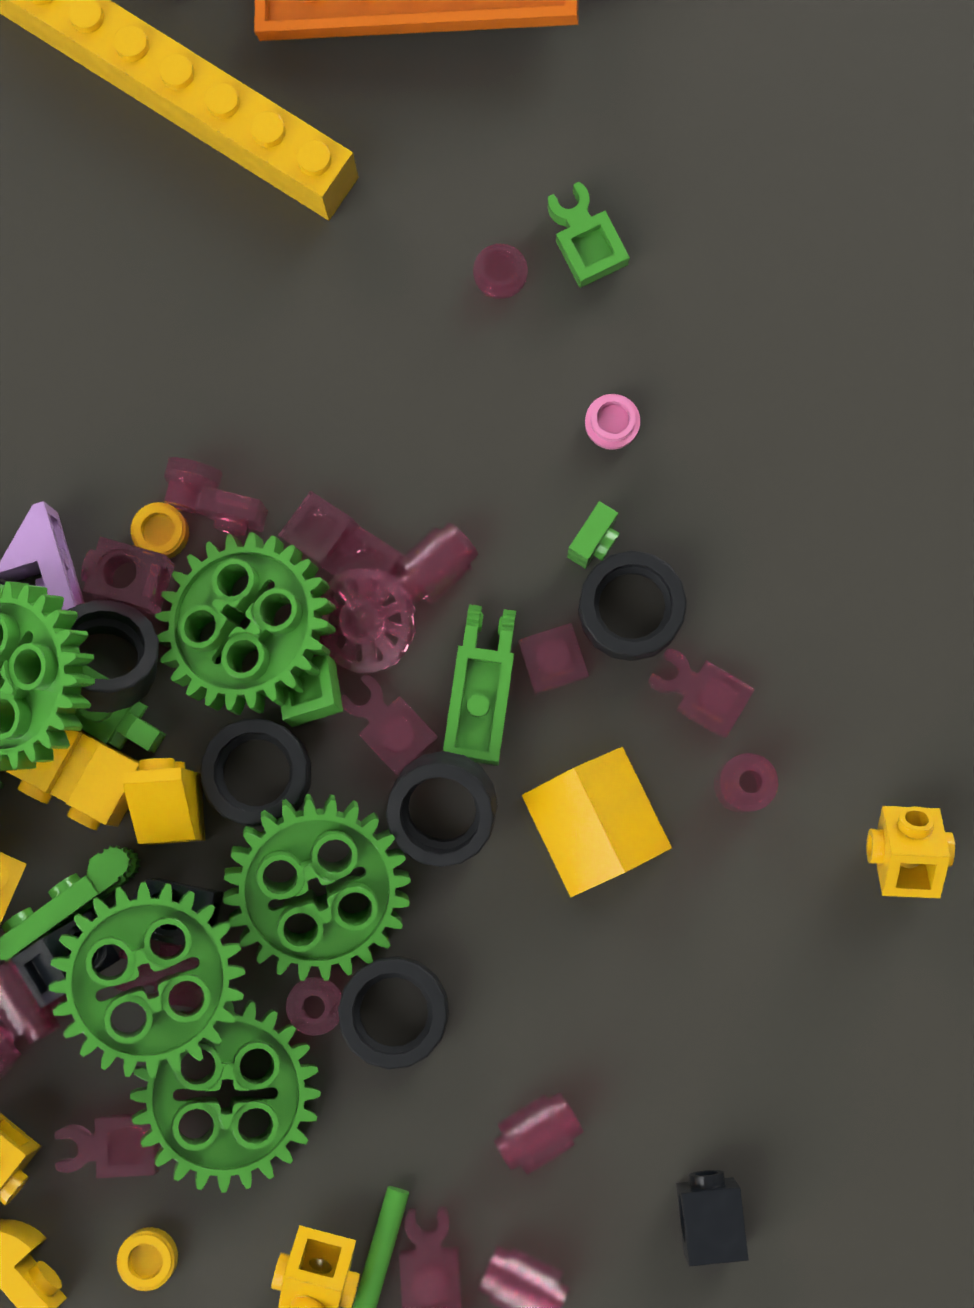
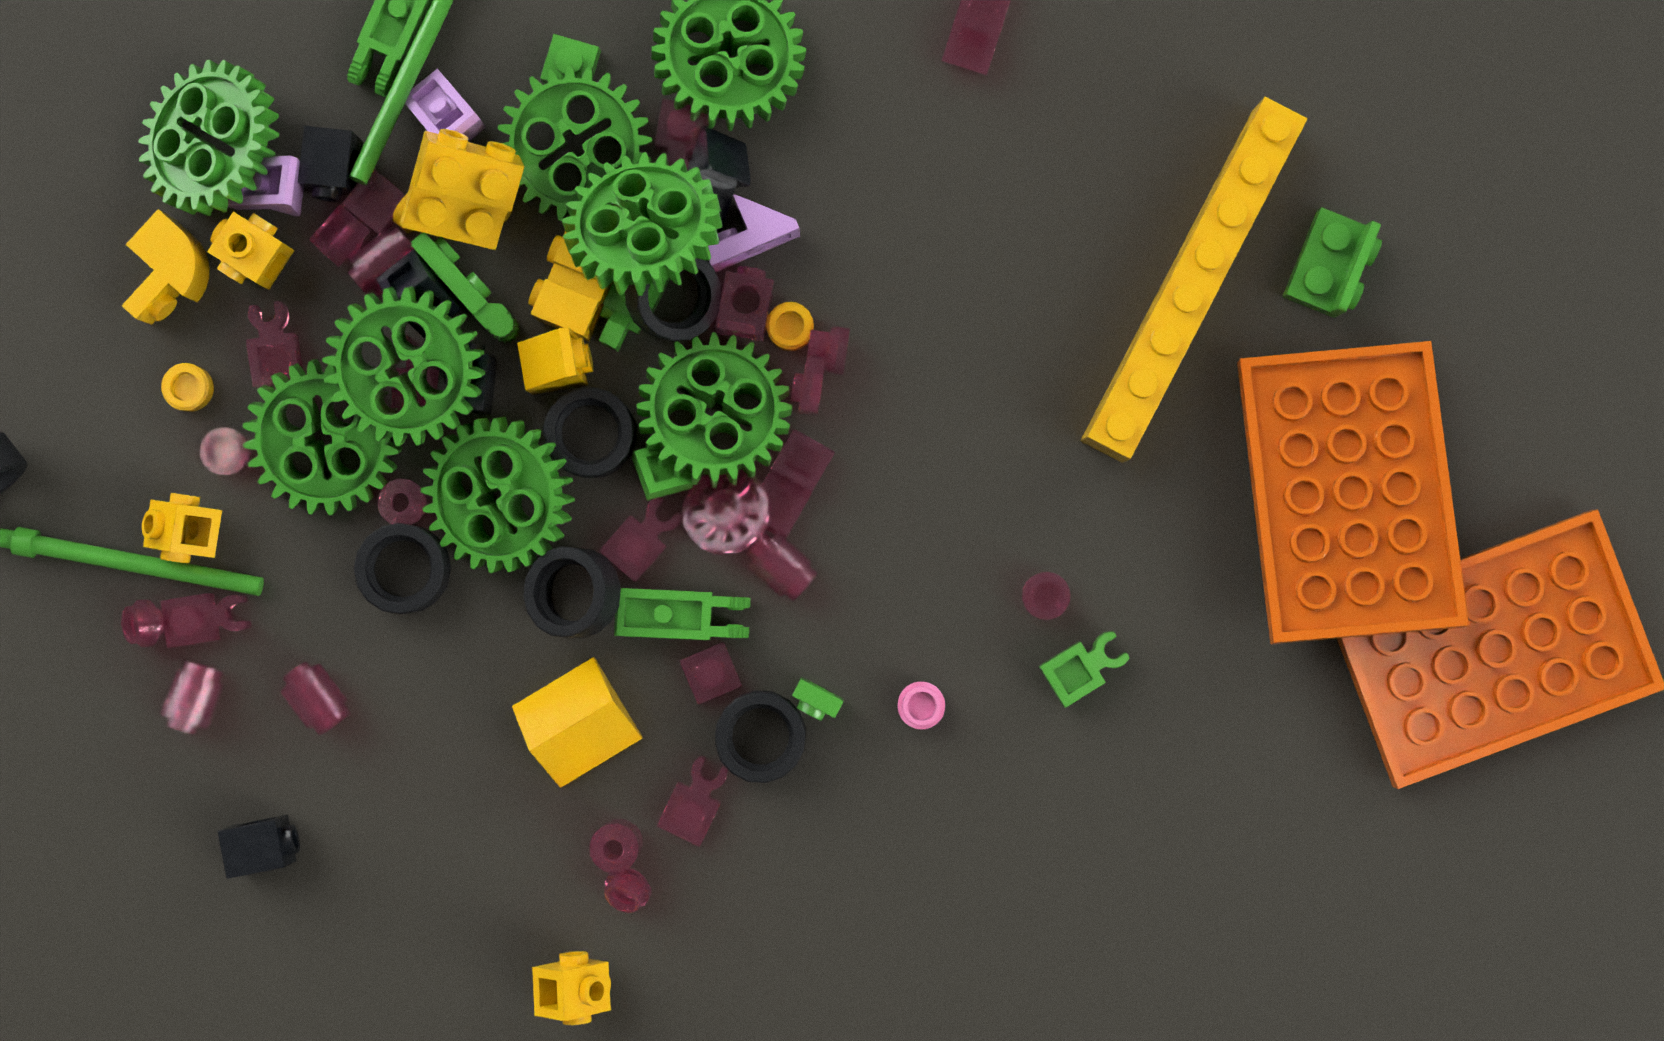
camera: 70 degrees right, 5 degrees up
(230, 1219) = (224, 451): none -> clear pink plate
(800, 778) = (627, 890): none -> clear pink plate

